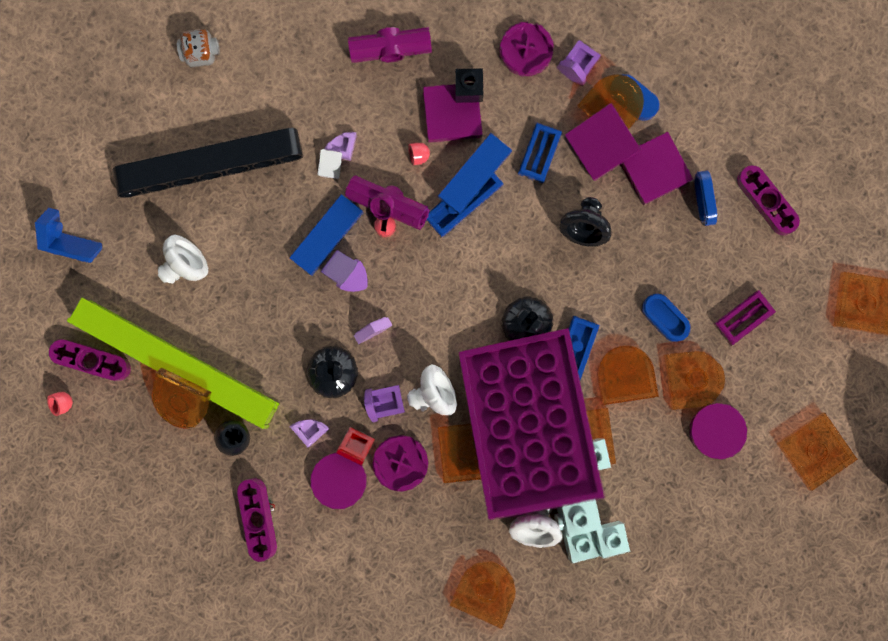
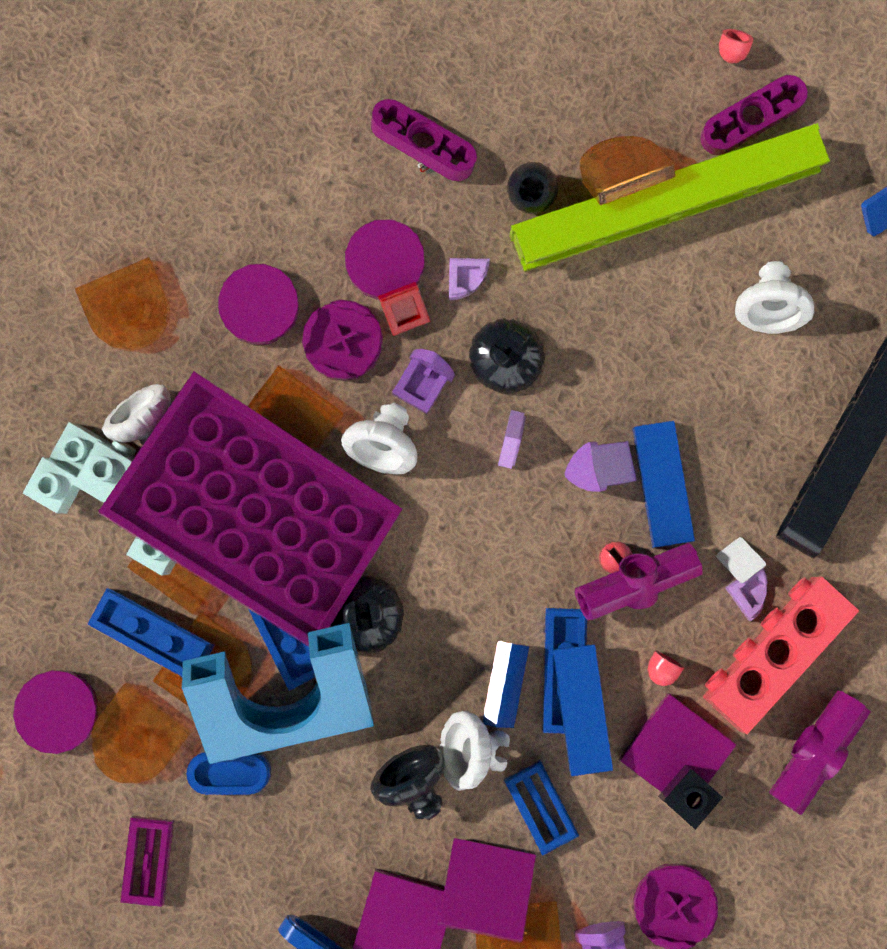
camera: 130 degrees right, 0 degrees up
(319, 96) = (829, 616): none -> coral brick
(421, 524) = (258, 304): none -> magenta tile
(497, 221) = (505, 685): none -> blue tile
(545, 209) = (470, 750): none -> white hair
(637, 419) = (147, 632): none -> blue tile
(641, 332) = (238, 727): none -> dark azure arch

